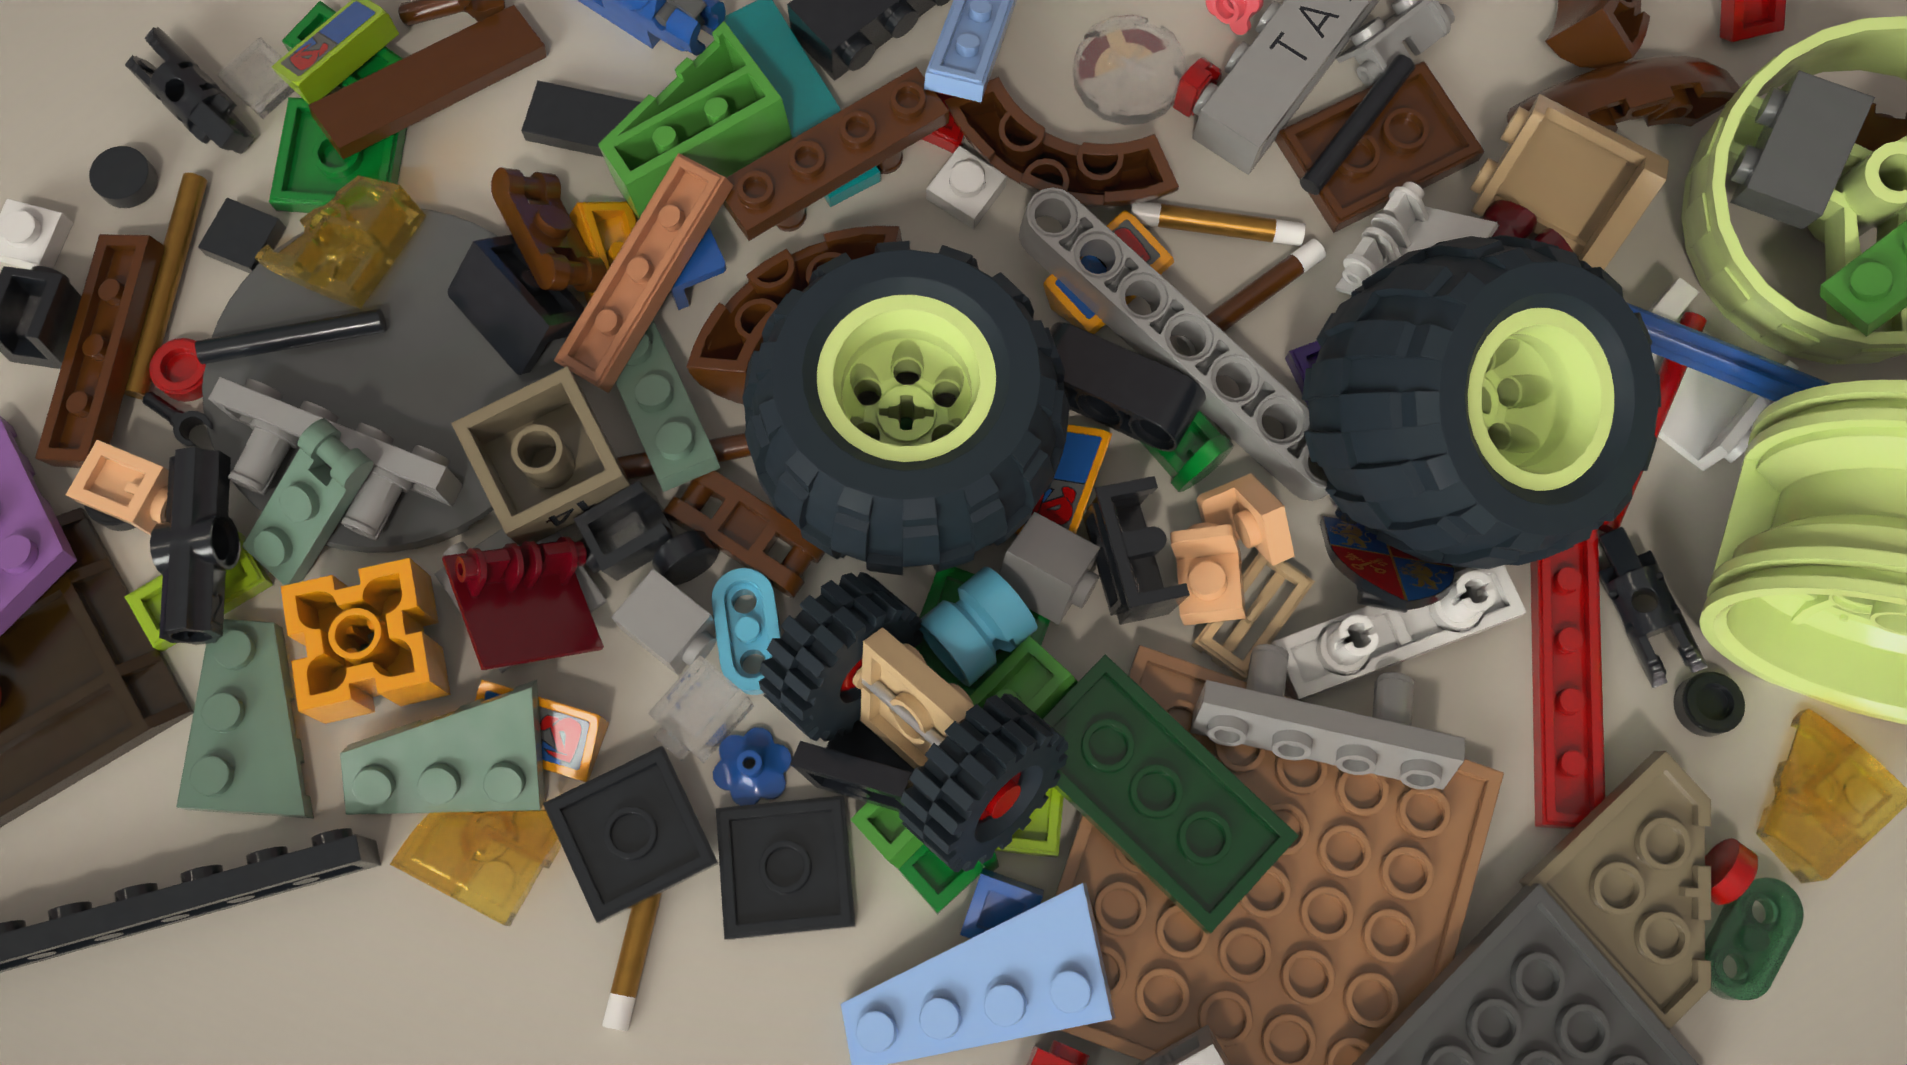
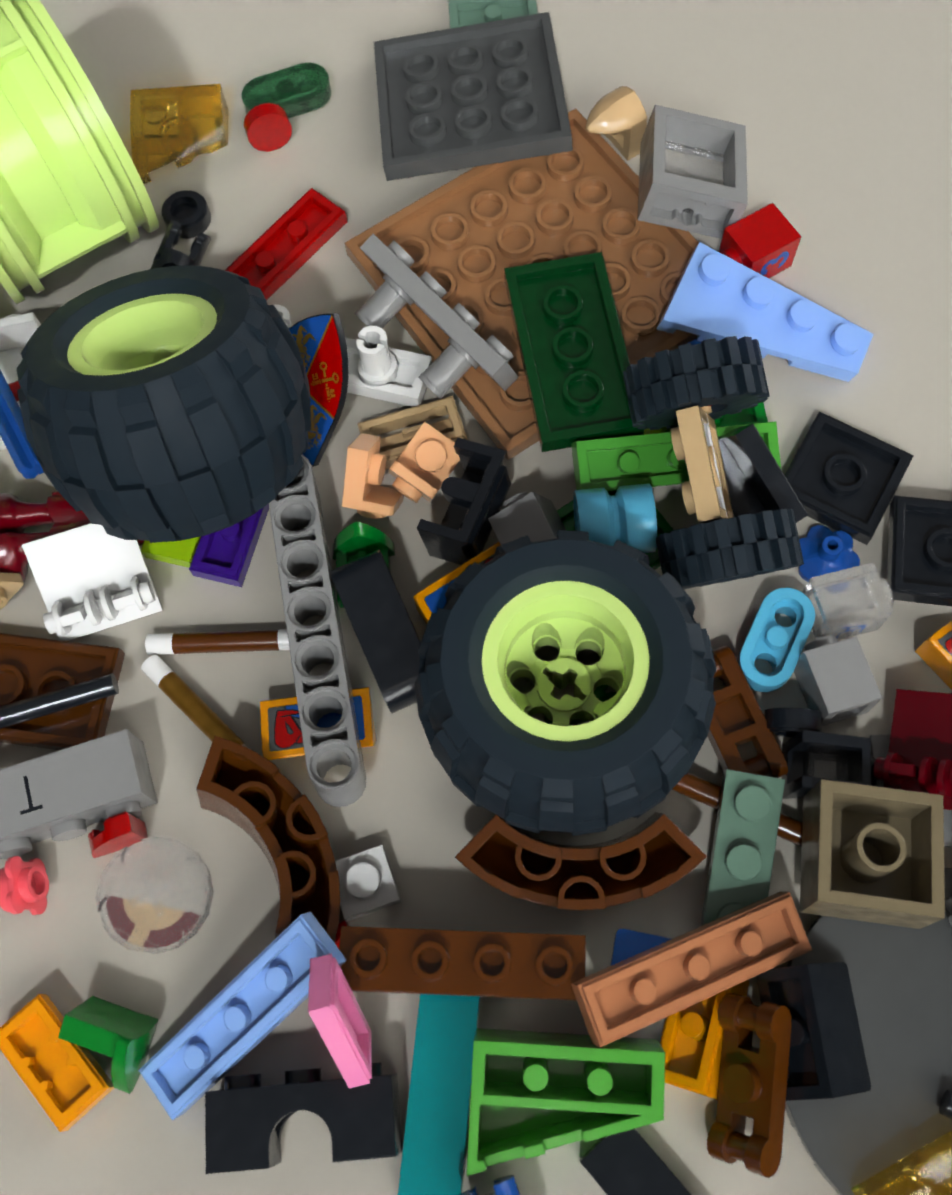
camera: 135 degrees left, 5 degrees down
(894, 41) = (340, 1020): none -> bright pink tile
(1641, 884) = (322, 146): dark tan plate -> none

